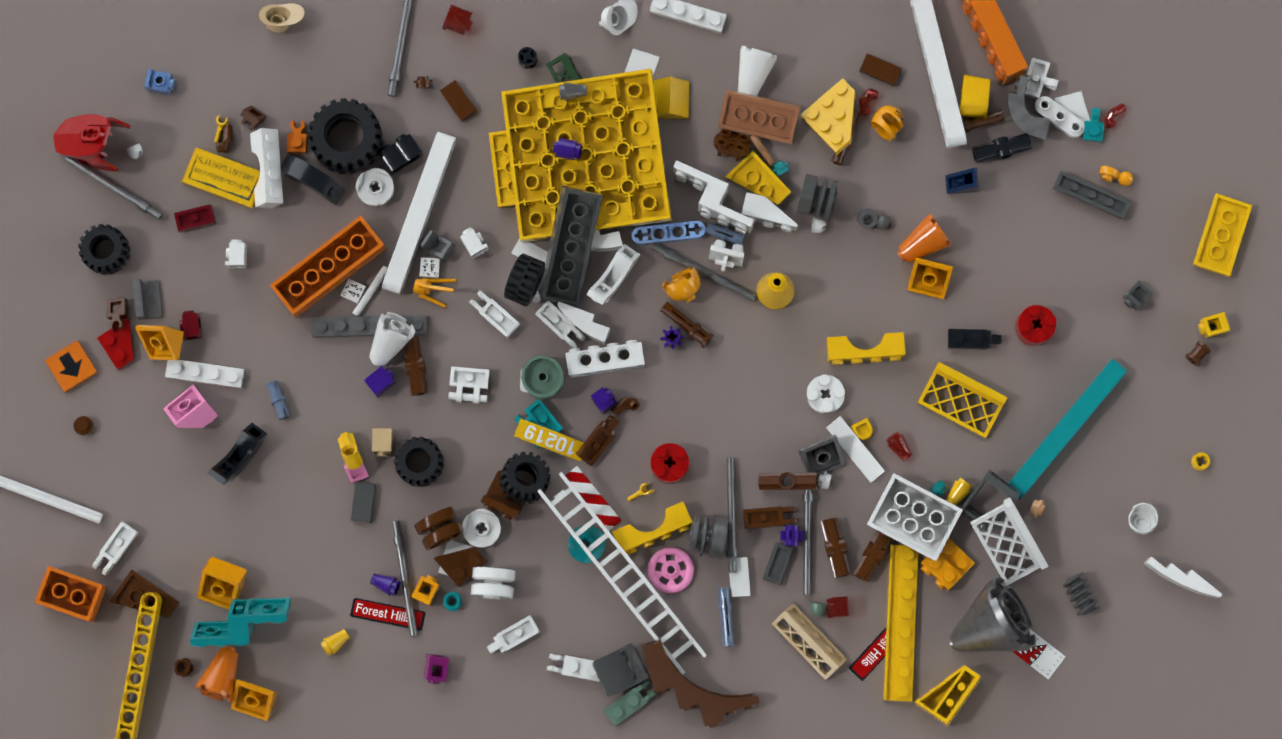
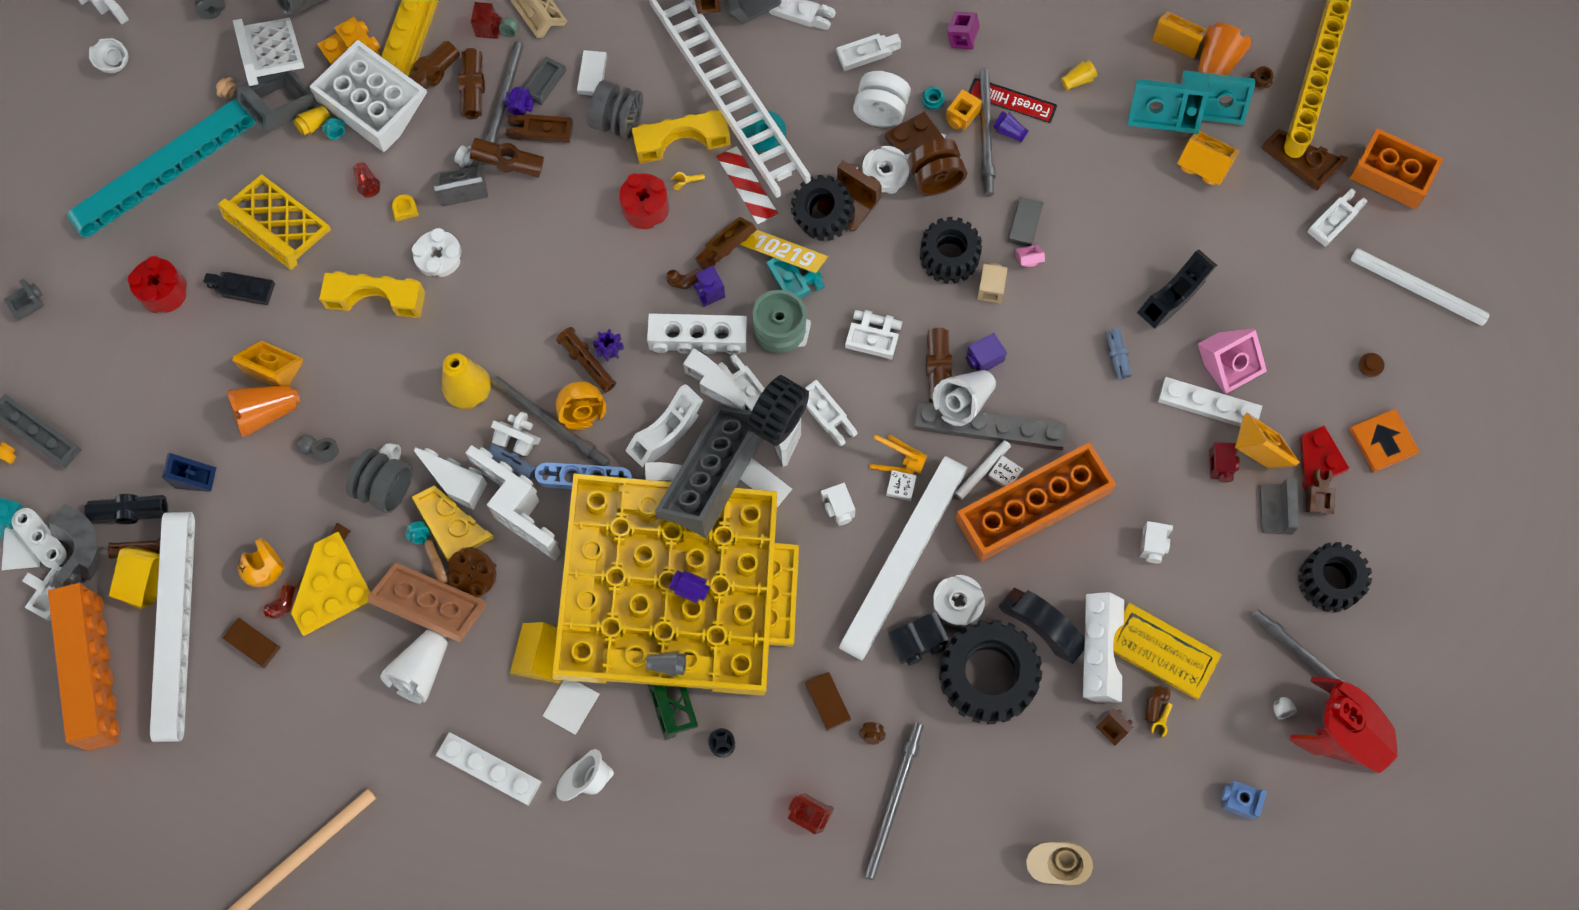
camera: 170 degrees left, 10 degrees down
(194, 218) = (1207, 601): dark red plate -> none
(297, 141) = (1058, 685): orange plate -> none
(350, 451) = (1035, 275): yellow piece -> none
(437, 245) = (886, 508): dark grey bracket -> none
(687, 574) = (679, 108): bright pink plate -> none
(726, 614) = (615, 41): sand blue pin -> none
(731, 552) = (583, 143): flat silver bar -> none
(855, 449) = (419, 187): white sticker -> none
(1194, 463) = (27, 115): yellow bush -> none

